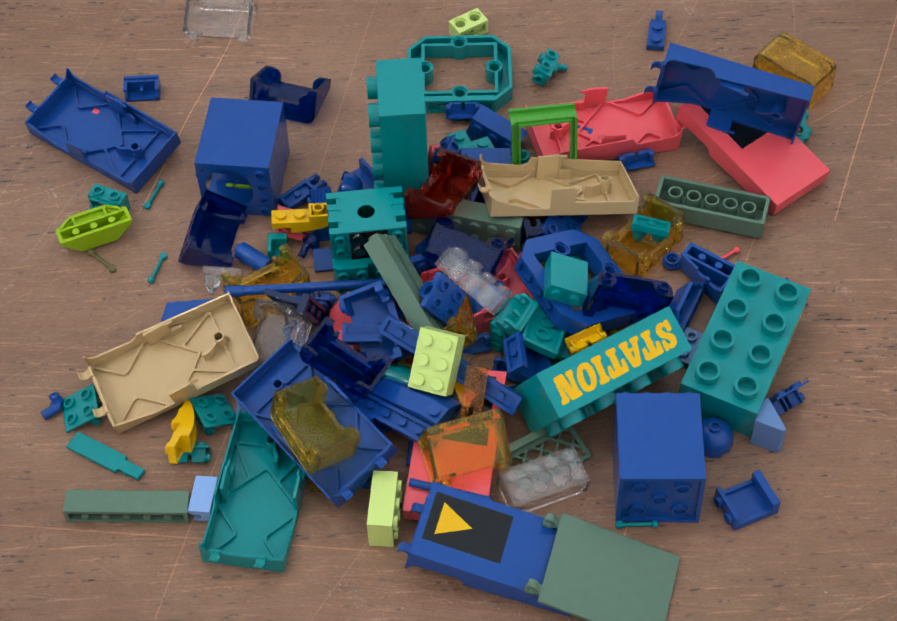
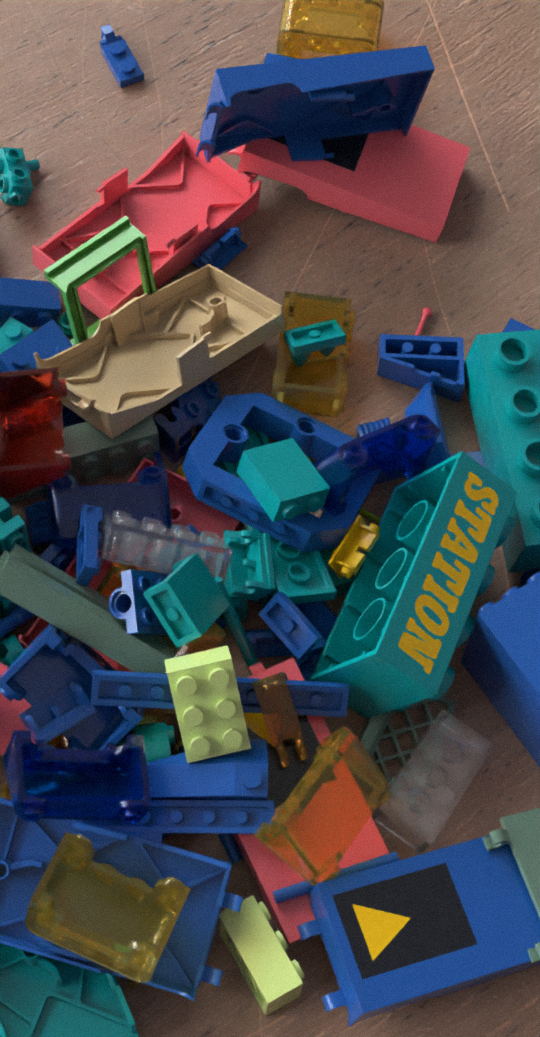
camera: 40 degrees left, 10 degrees up
(427, 263) = (88, 543): none -> blue hinge
(462, 304) = (187, 600): none -> teal panel
(489, 338) = (237, 629): none -> teal bar
(669, 258) = (362, 364): blue plate -> none
(716, 206) = (367, 265): sand green brick -> none

